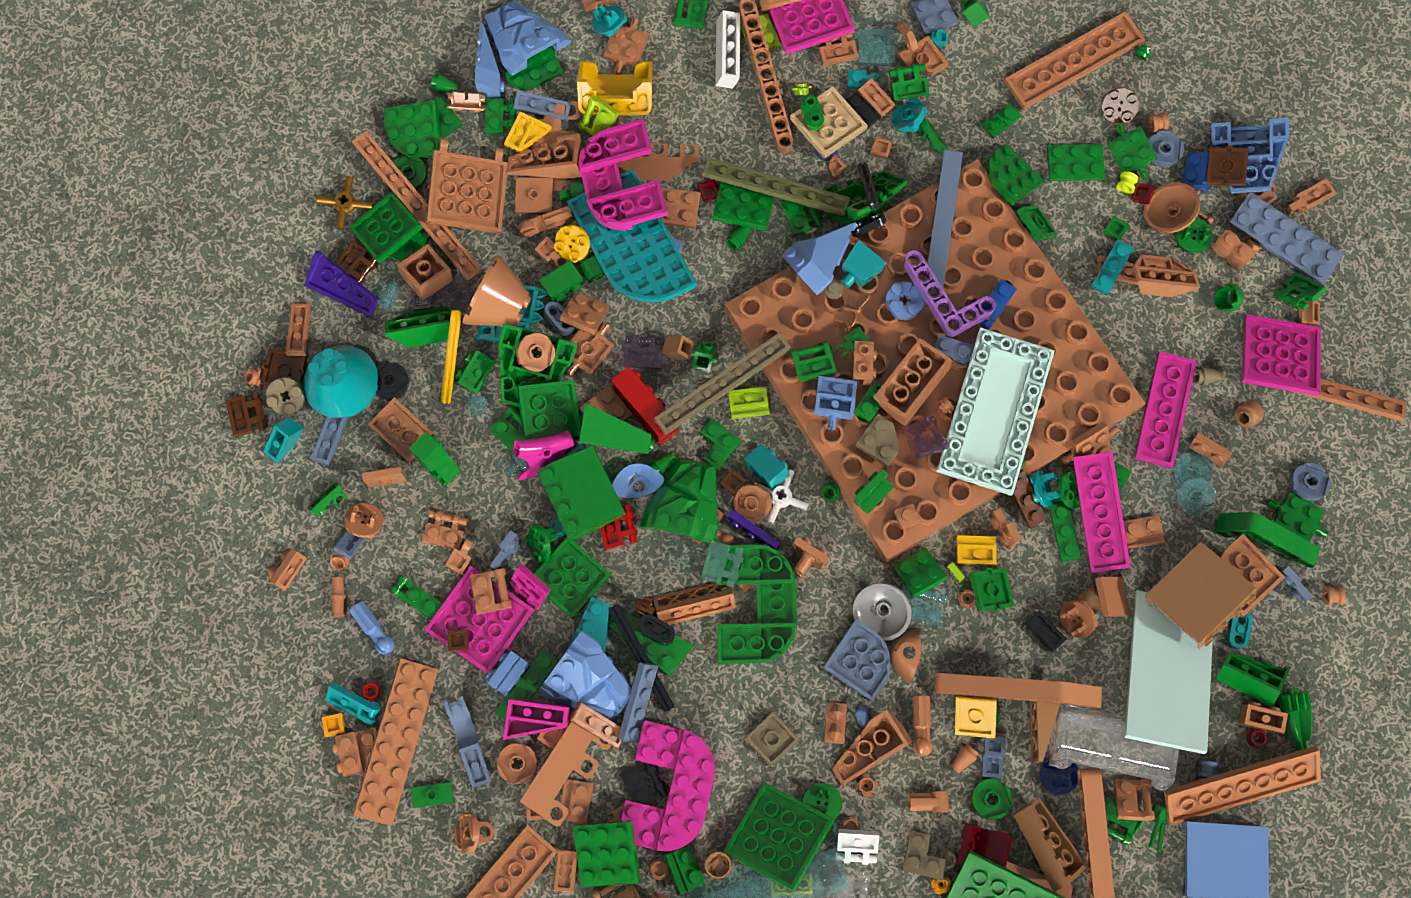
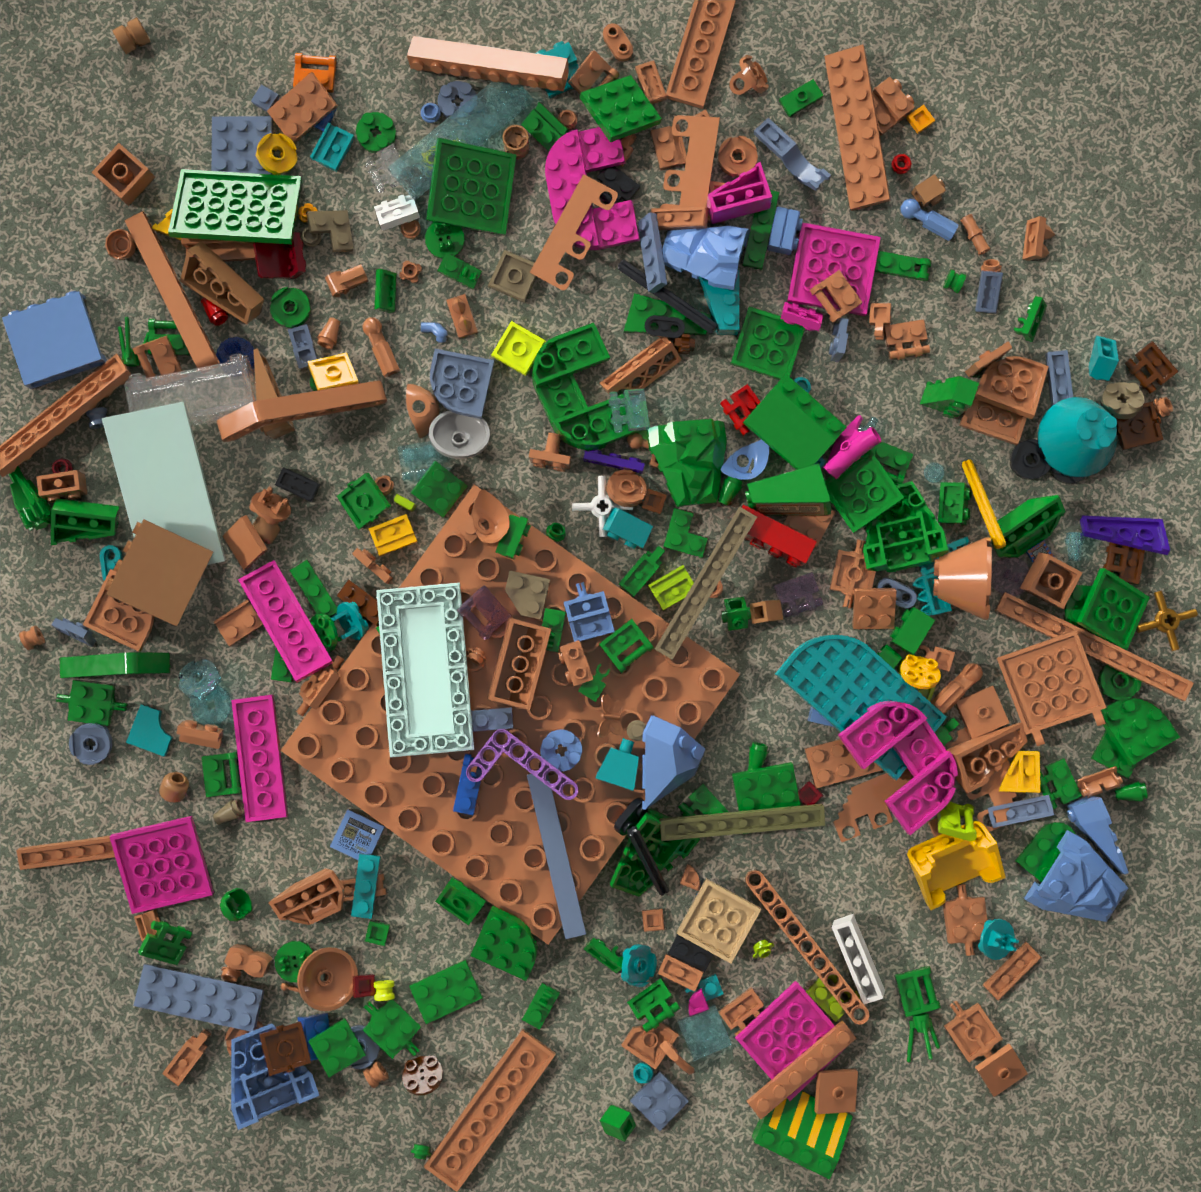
camera: 155 degrees right, 10 degrees up
(298, 329) = (1144, 471): nougat tile -> none
(352, 703) = (912, 144): teal plate -> none
(359, 653) = (929, 191): none -> medium nougat brick
(372, 522) = (997, 313): nougat plate -> none
(373, 446) = (1013, 385): none -> nougat plate
(378, 562) = (954, 281): none -> green wheel
(458, 641) = (844, 237): reddish brown plate -> none
(526, 358) = (893, 535): nougat plate -> none
(539, 542) = (810, 363): green plate -> none
(711, 754) = (563, 234): none -> nougat piece
(769, 427) = (641, 571): none -> green hinge
(796, 670) = (518, 348): none -> neon yellow plate
(812, 111) = (740, 921): green plate -> none
(821, 765) = (459, 271): none -> green plate
(872, 70) = (697, 1003): none -> dark pink tile
(876, 743) = (416, 309): nougat wedge -> none
(882, 524) = (492, 510): none -> nougat piece
(897, 775) = (385, 291): none -> green plate
(1065, 821) = (214, 312): none -> red cone
(1105, 313) = (357, 835): none -> medium blue tile
(1183, 152) = (337, 1047): none -> green plate
(1209, 410) = (215, 774): none -> green plate
(1255, 471) = (148, 731): none -> teal tile

